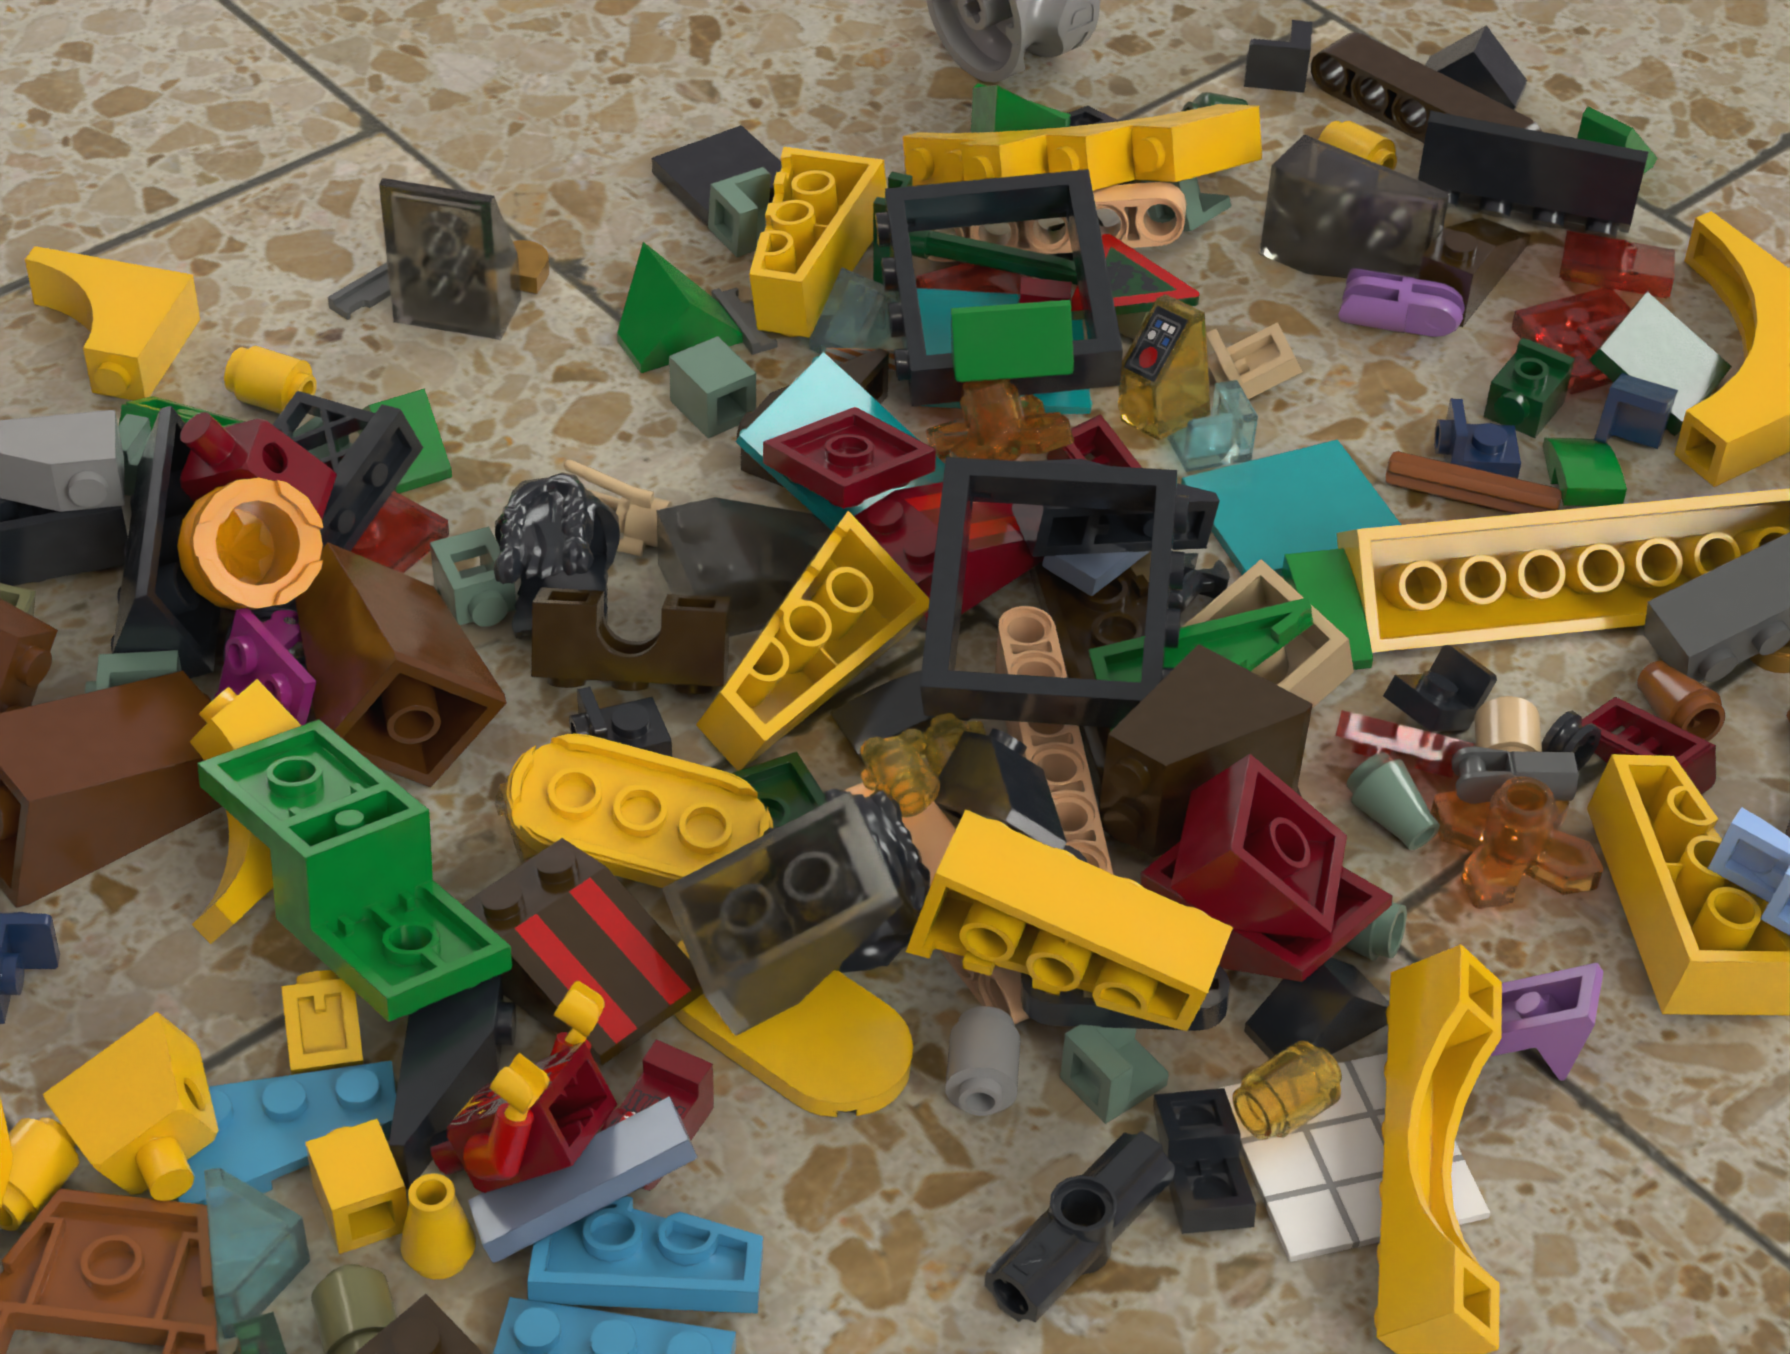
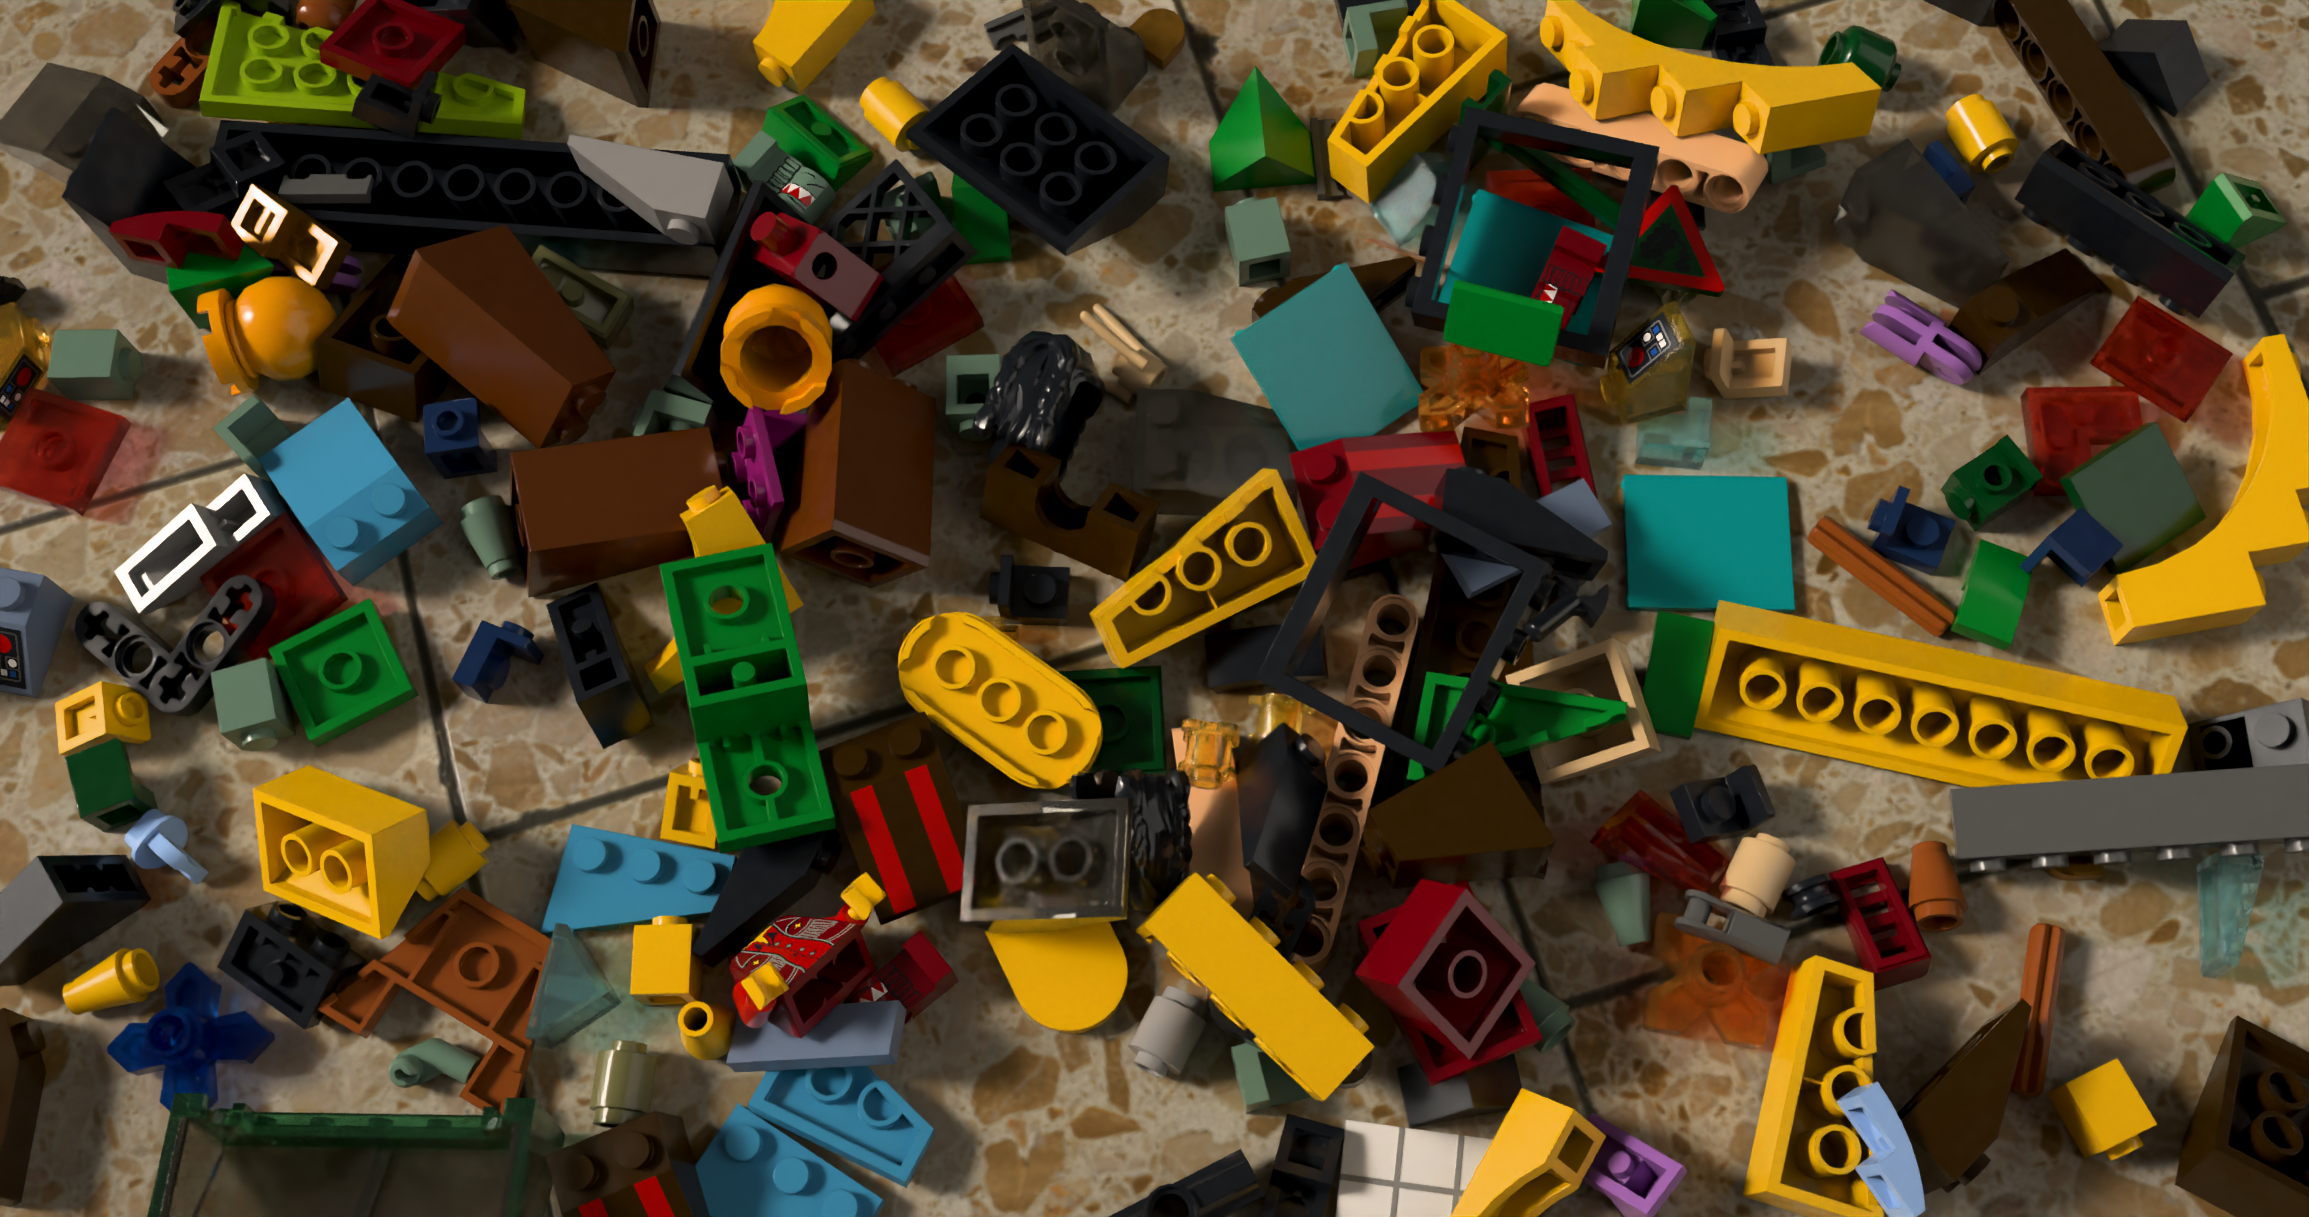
camera: 30 degrees right, 25 degrees up
(140, 1109) = (533, 848): yellow torso -> none
(147, 932) = (599, 666): none -> black slope
(460, 348) = (1044, 152): none -> black slope
(849, 457) = (1316, 392): dark red plate -> none
(1288, 1091) = (1389, 1159): clear yellow brick -> none

